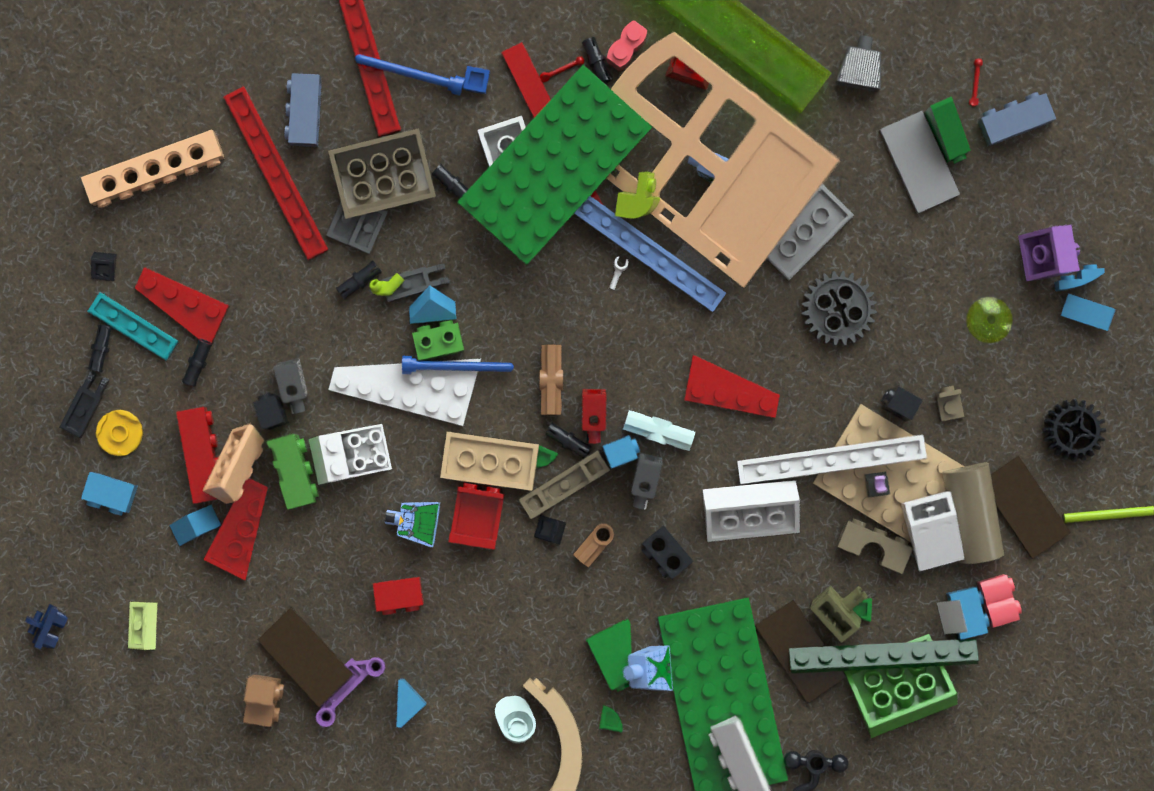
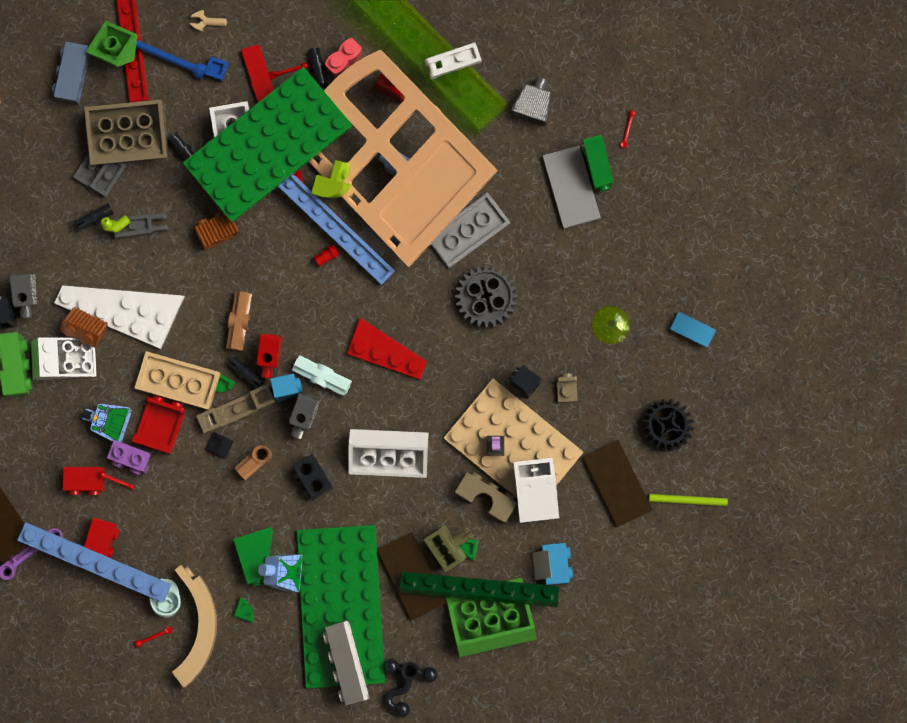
camera: 15 degrees right, 5 degrees down
(276, 173) = (40, 121): red tile -> none
(350, 69) = (113, 45): none -> bright green slope
(369, 414) = (84, 327): none -> dark orange brick
(408, 702) = (75, 576): dark azure slope -> none
(411, 365) = (124, 291): blue piece -> none
(421, 587) = (102, 475): none -> red hinge
(428, 663) = (102, 536): none -> red brick
(428, 691) = (94, 562): none -> medium blue plate
(432, 307) = (150, 247): dark azure slope -> none
(438, 341) = (150, 276): bright green brick -> none
(448, 560) = (126, 455): none -> medium lavender bracket
(455, 23) = (206, 21): none -> tan bar
(506, 275) = (215, 230): none -> dark orange brick
(525, 755) = (138, 643): none -> red hinge
(618, 270) = (309, 240): white hand -> none
(642, 286) = (326, 255): none -> red pin
(761, 31) = (453, 60): none -> white plate
(832, 459) = (461, 419): white plate -> none
(976, 512) = (573, 480): dark tan brick -> none
(999, 600) = (584, 557): coral brick -> none
(1016, 118) = (656, 162): sand blue brick -> none
(1049, 252) = (666, 275): medium lavender brick -> none
(1084, 276) = (695, 299): dark azure slope -> none

